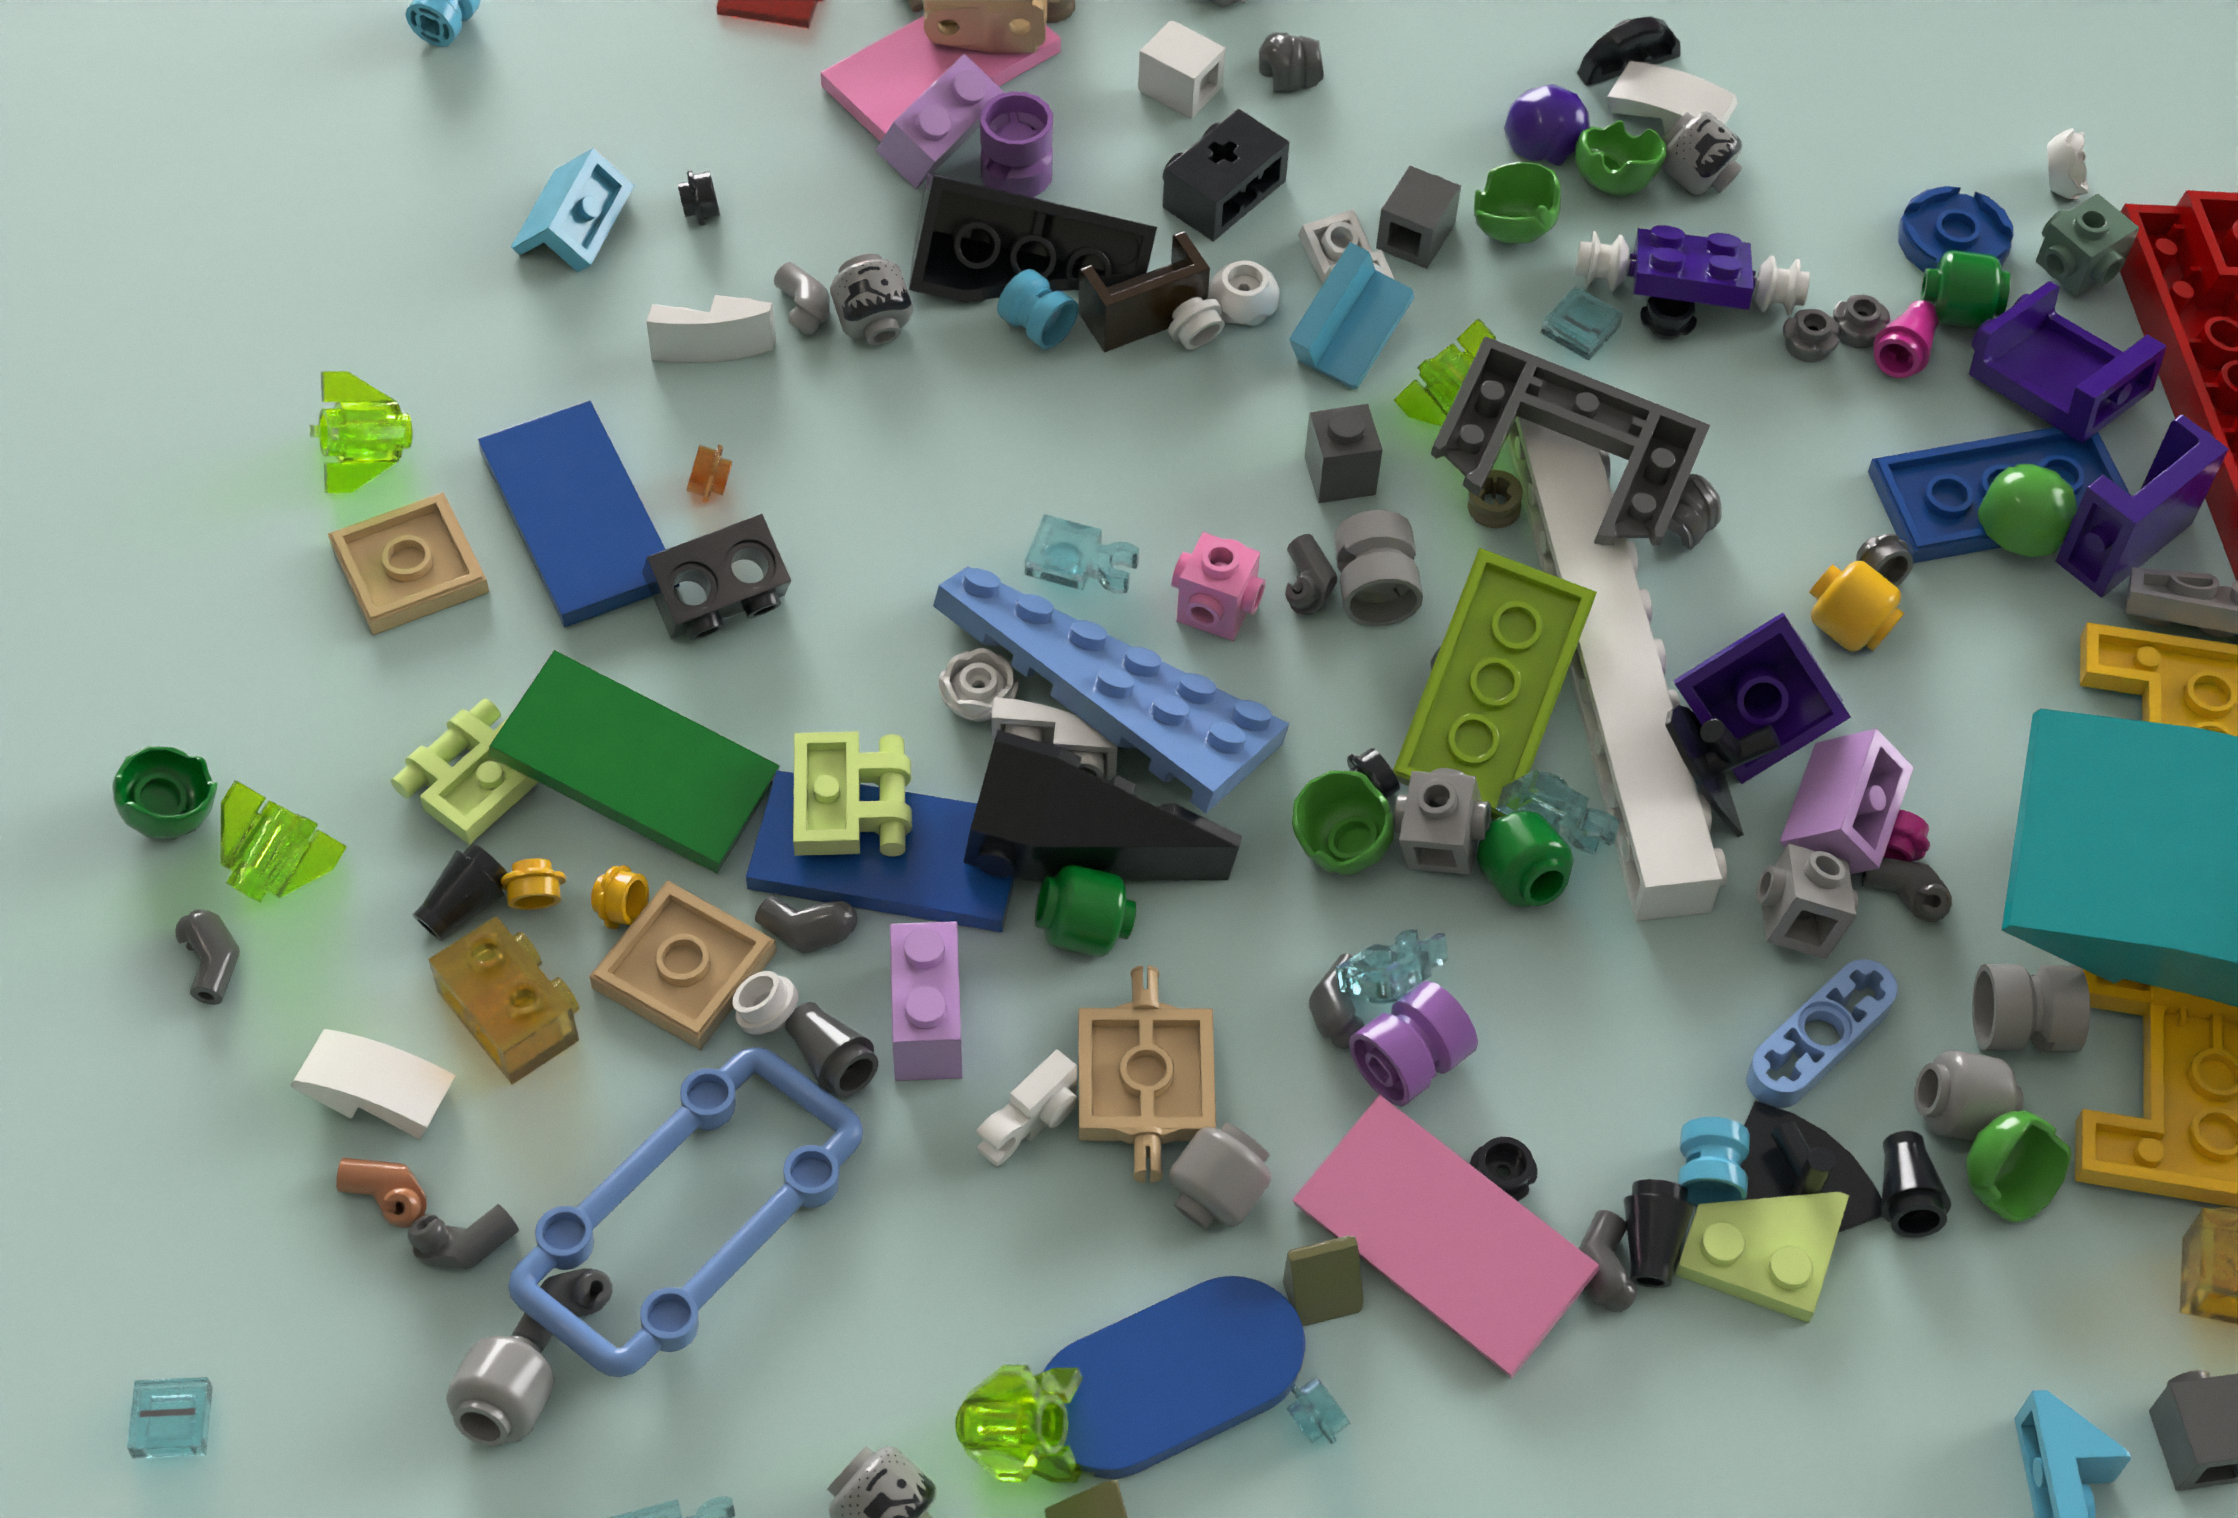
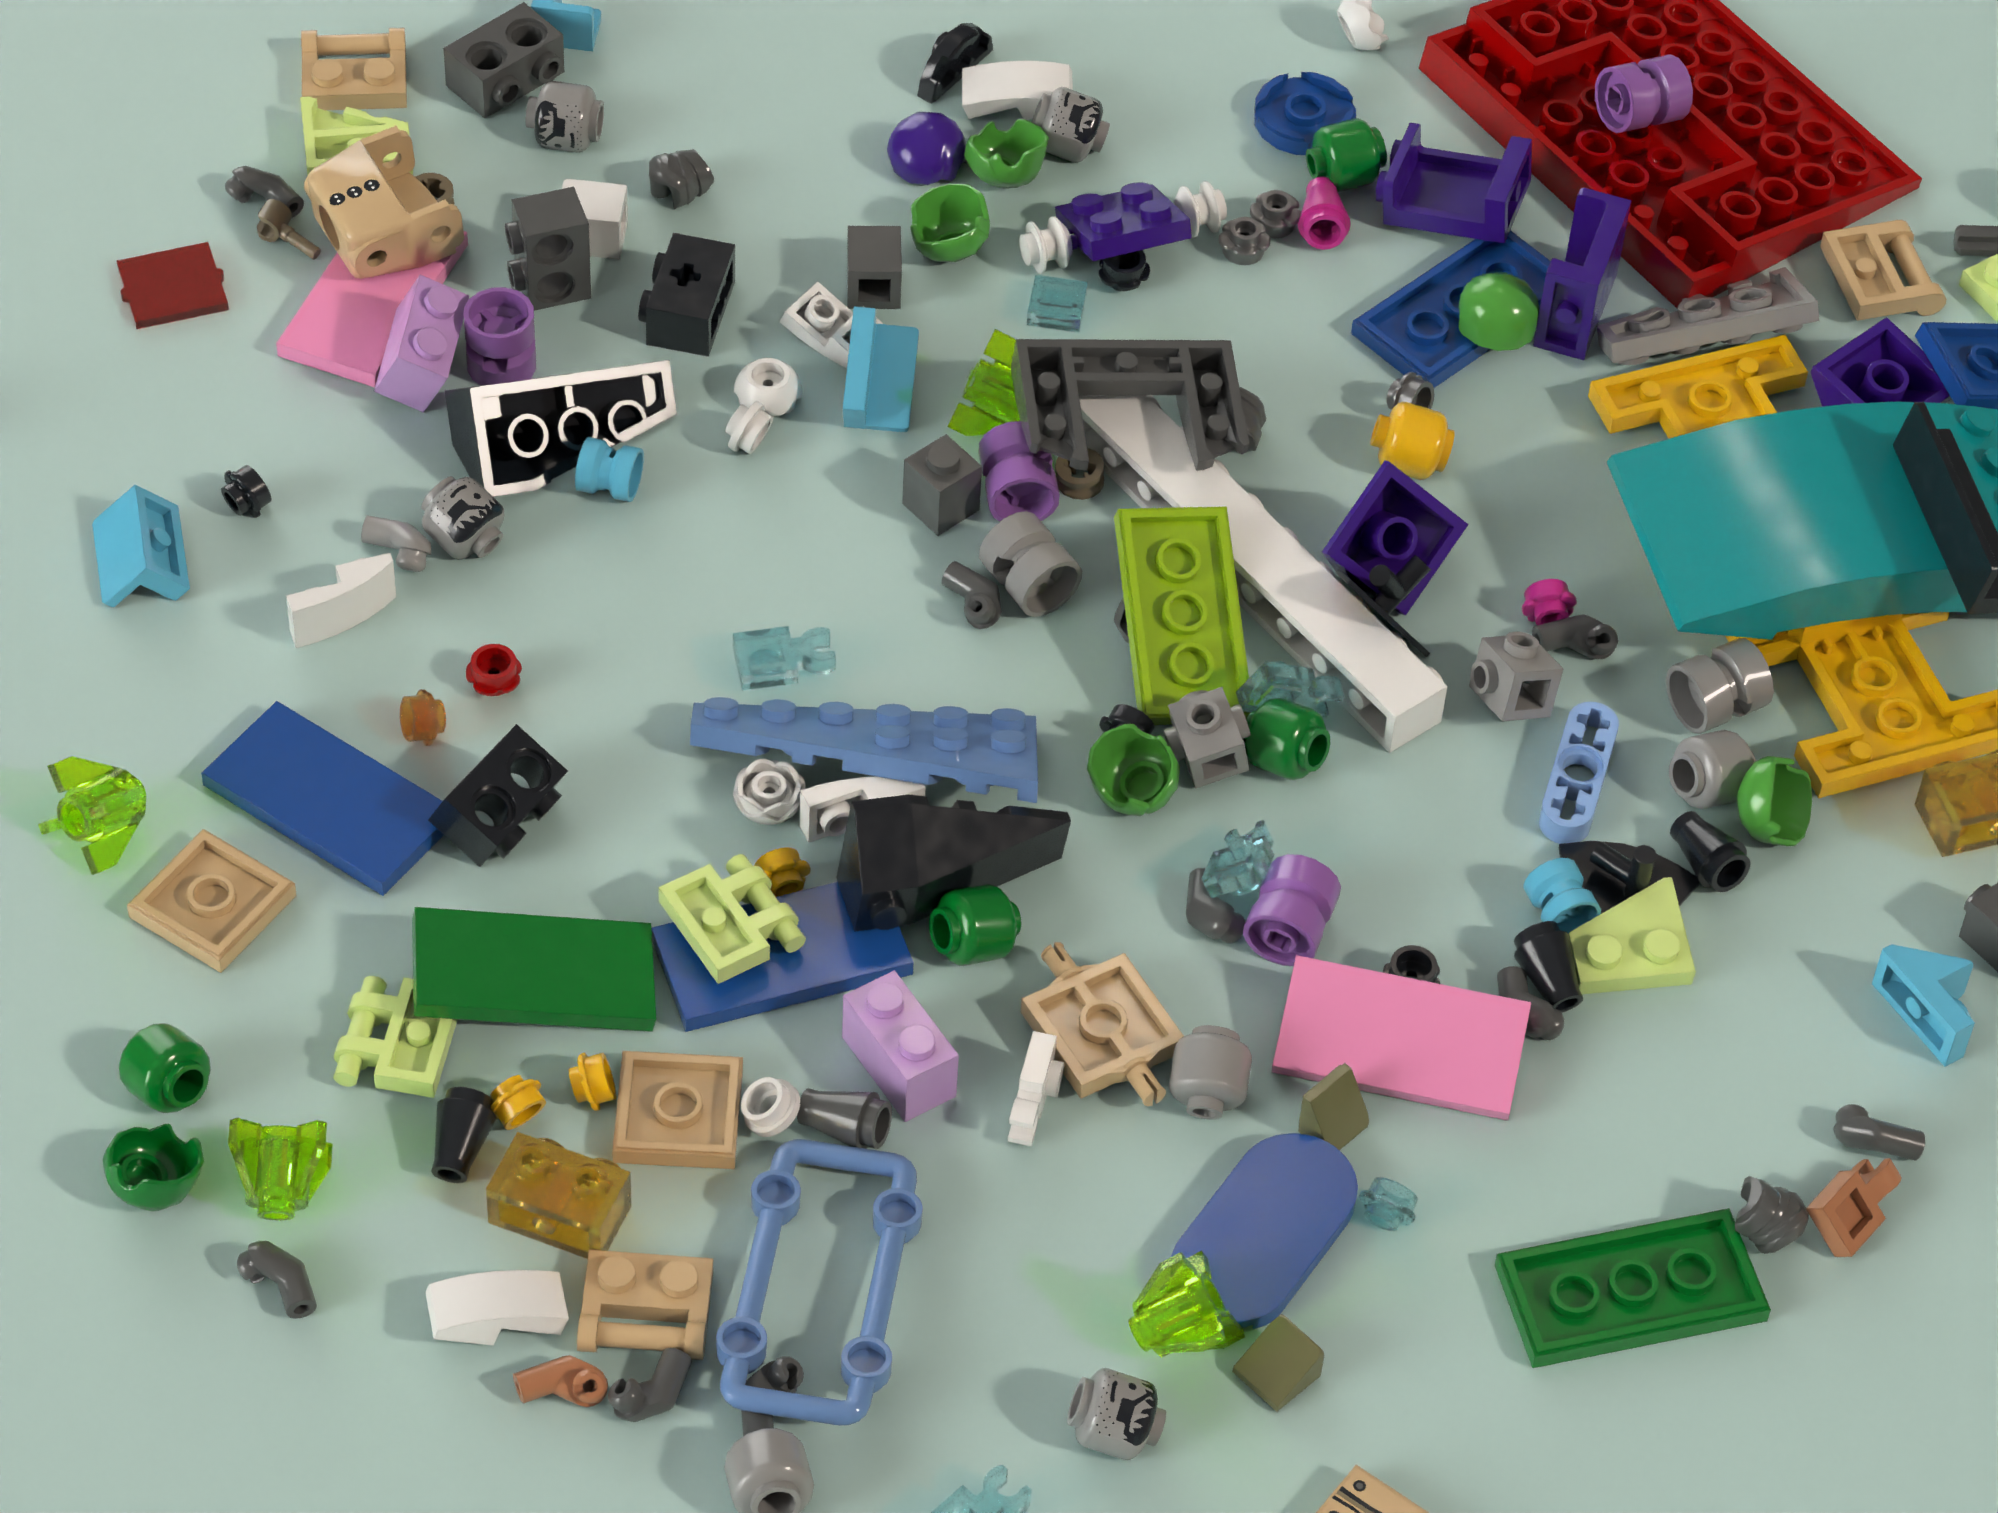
camera: 30 degrees left, 5 degrees down
(244, 703) = (164, 1068): none -> green head
(526, 1131) = (645, 1289): none -> tan plate
(801, 445) = (493, 670): none -> red plate
(808, 928) = (761, 1037): dark grey arm -> none
(937, 771) = (784, 870): none -> yellow plate
(1111, 79) = (549, 248): none -> dark grey brick
(1144, 302) = (694, 425): dark brown panel -> none
(1218, 585) = (913, 631): bright pink brick -> none
(1415, 481) = (1015, 476): none -> medium lavender wheel
(1849, 799) = (1500, 587): lavender brick -> none
(2086, 244) = (1417, 81): sand green brick -> none

